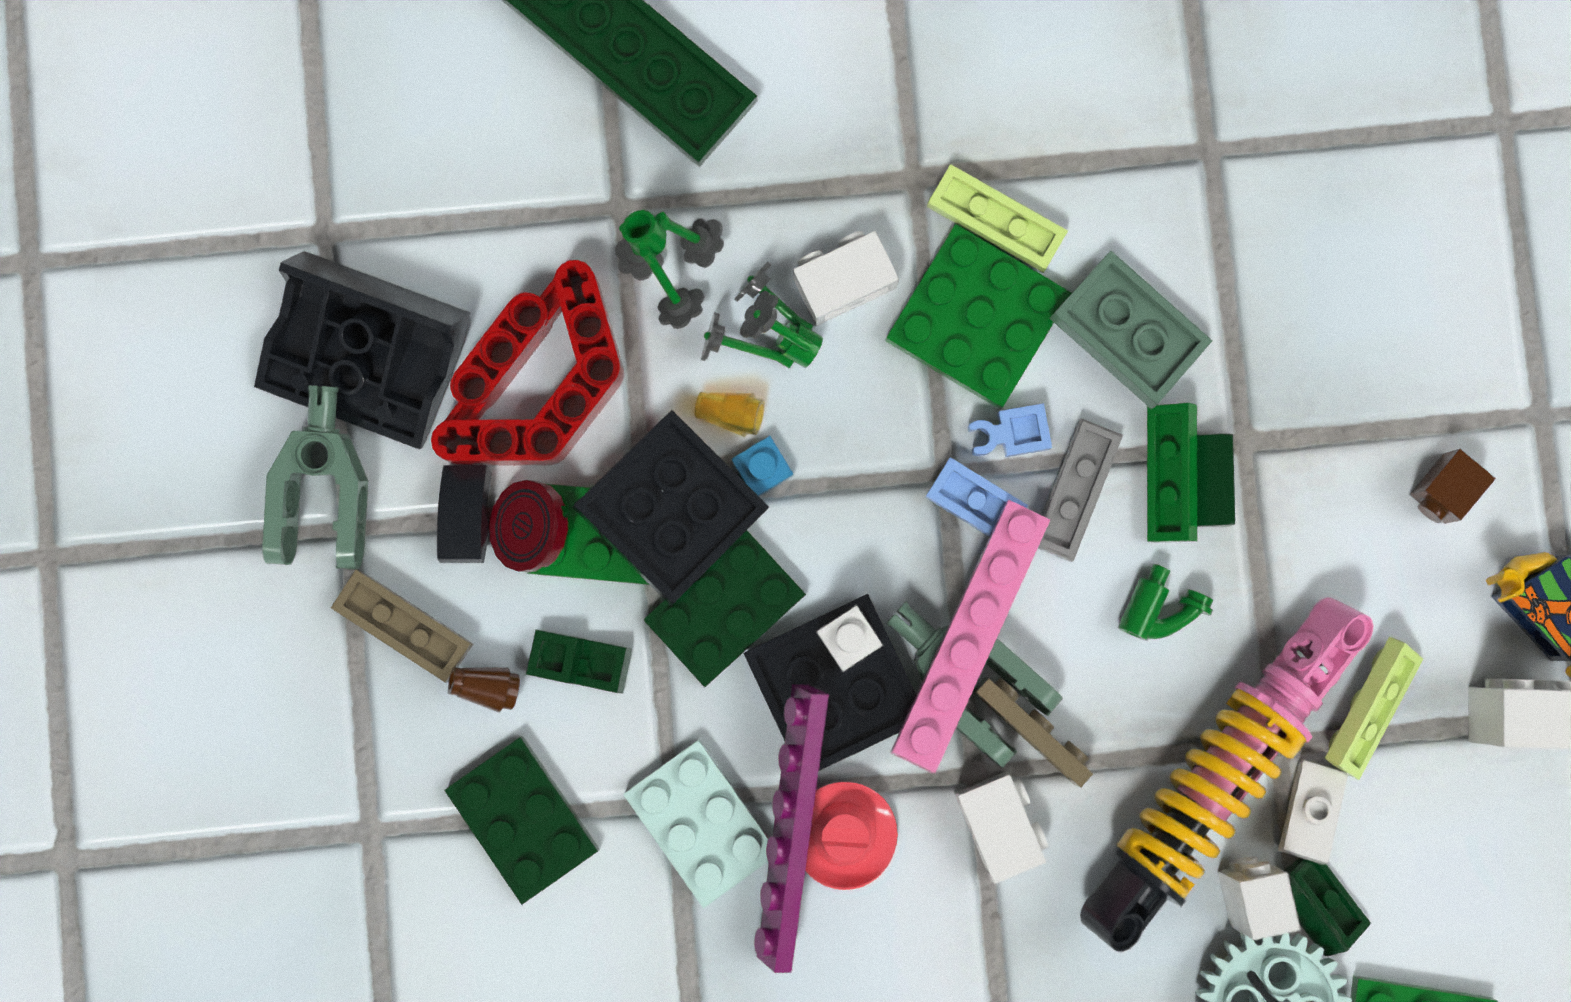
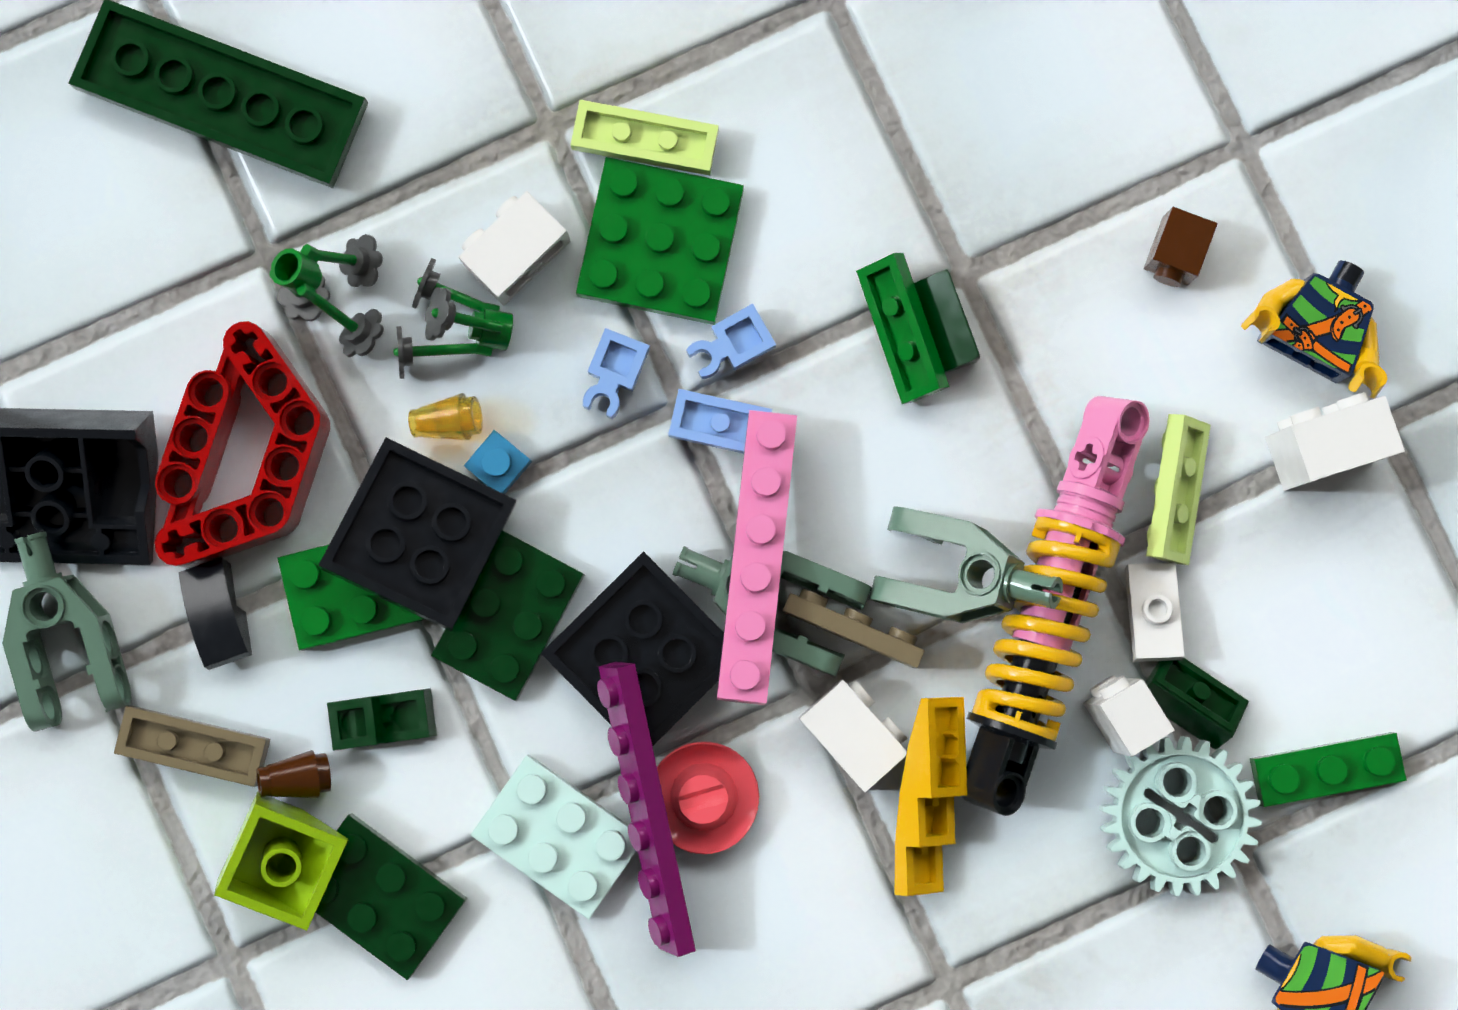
camera: 20 degrees left, 0 degrees up
(446, 759) = (280, 862): none -> lime slope
(528, 526) = (283, 603): dark red tile -> none
(849, 638) = (637, 601): white brick -> none
(900, 416) = (617, 365): none -> light blue plate
(1058, 893) = (930, 781): none -> yellow slope
(1078, 487) = (816, 376): light grey tile -> none
(1131, 330) = (813, 201): sand green plate -> none
(1146, 604) = (922, 461): green plant -> none
(1151, 743) = (970, 598): none -> piece

